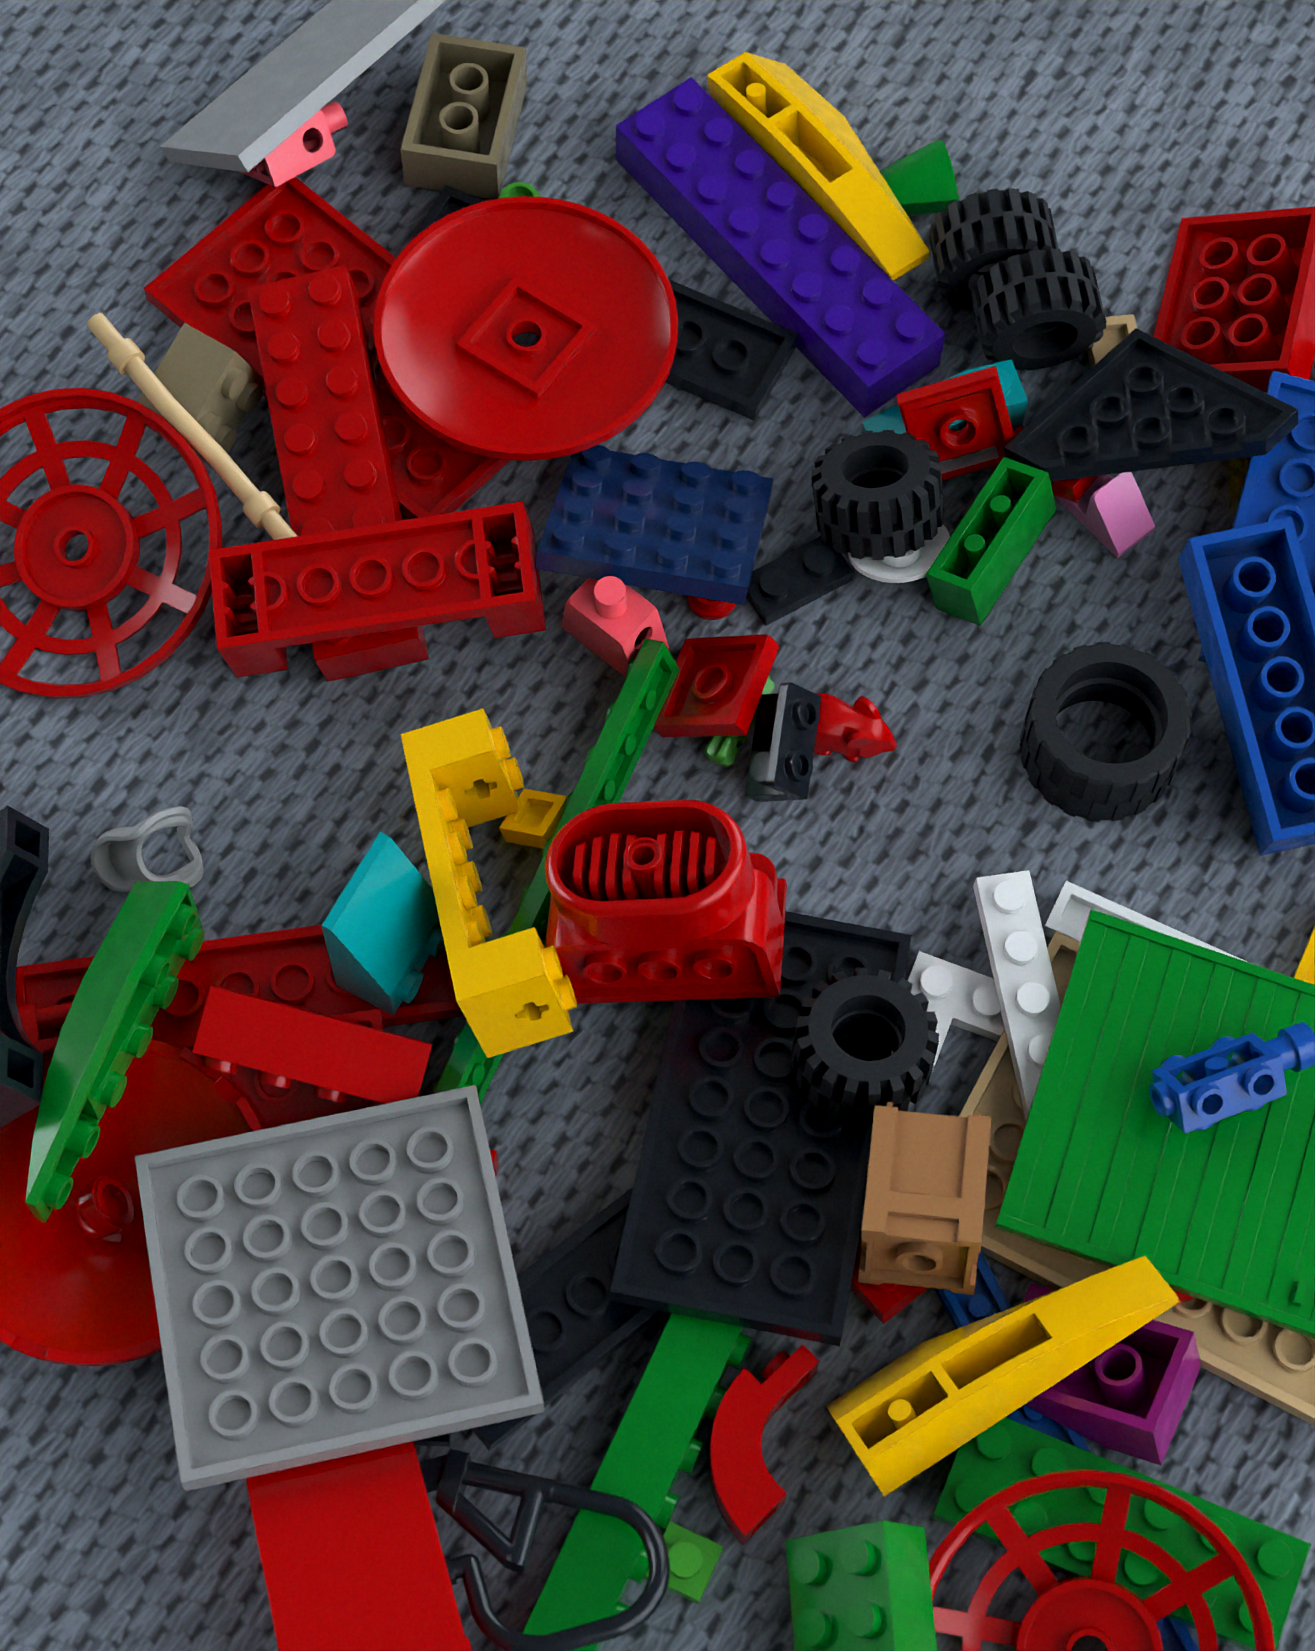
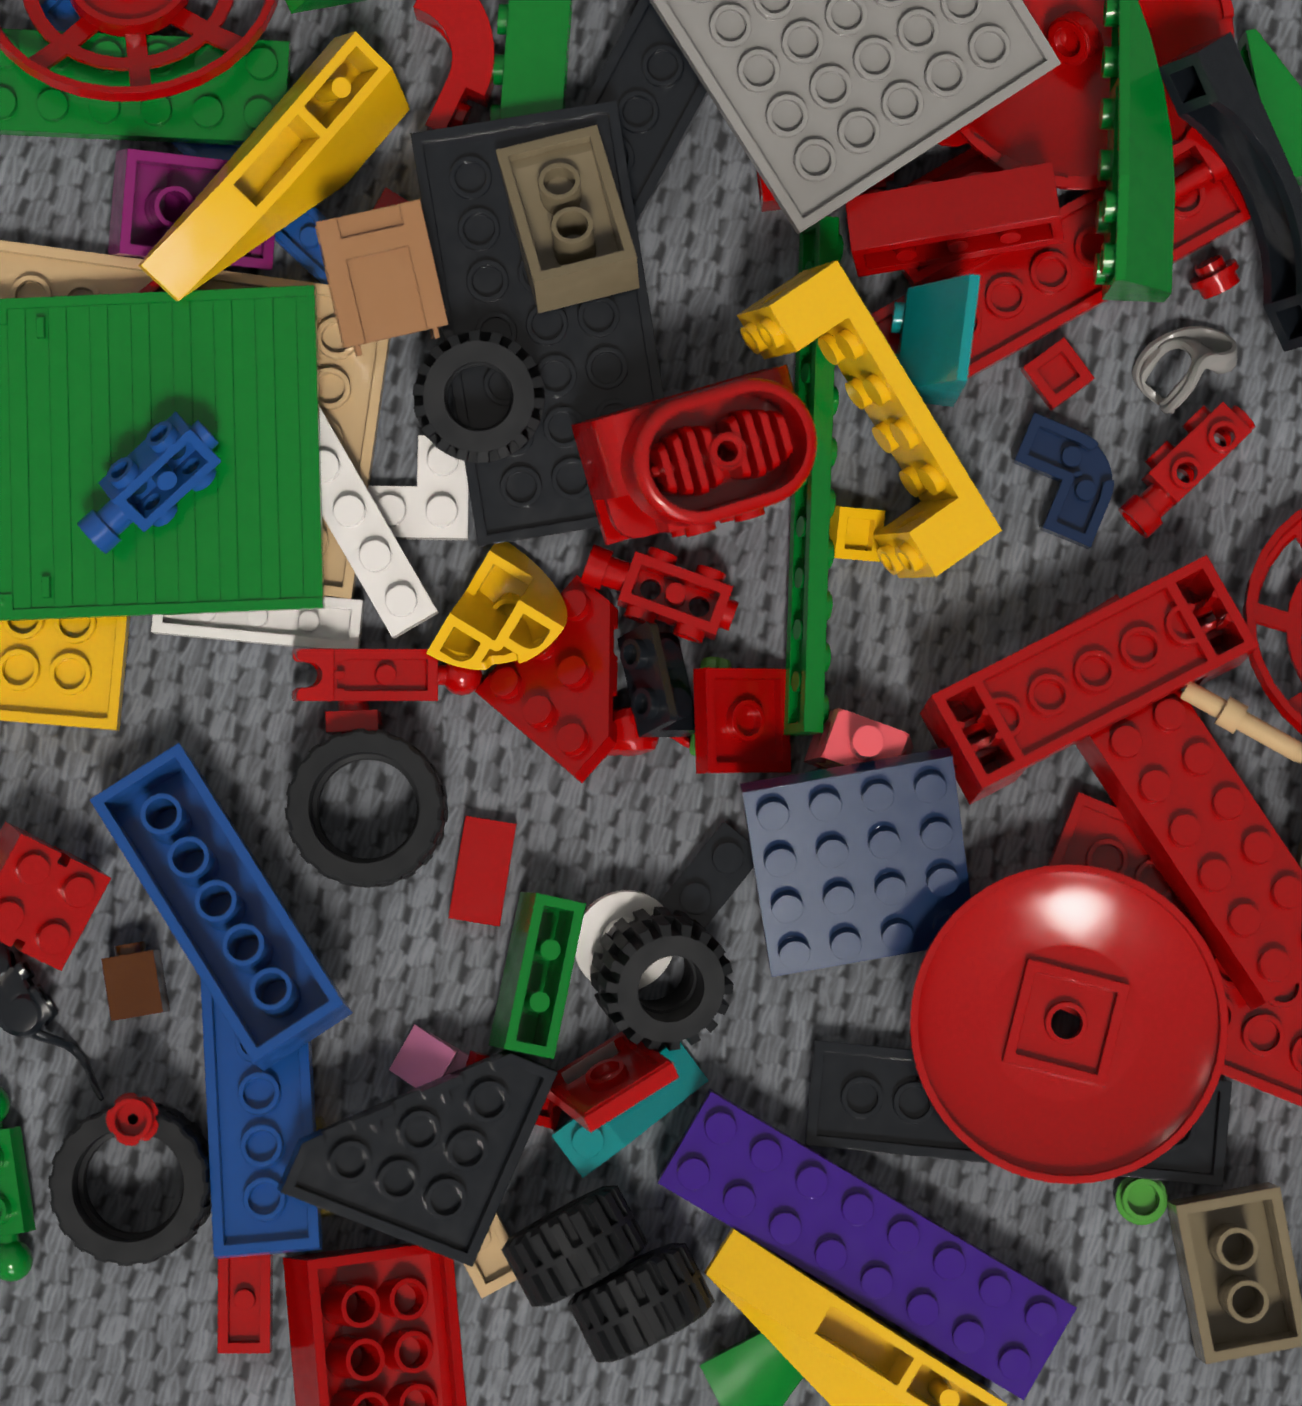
camera: 160 degrees right, 20 degrees up
(78, 927) = (1215, 276): none -> red plate
(187, 769) = (1192, 456): none -> red brick
(275, 895) = (1057, 374): none -> red plate
(297, 793) = (1082, 473): none -> dark blue plate
(707, 1187) = (568, 219): none -> dark tan slope
(756, 820) = (676, 586): none -> red brick
(874, 779) = (567, 689): none -> red plate
(911, 859) = (503, 615): none -> yellow brick
(1009, 658) = (482, 871): none -> red tile
(1054, 849) = (380, 675): none -> red plate
(1090, 821) = (352, 716): none -> red plate

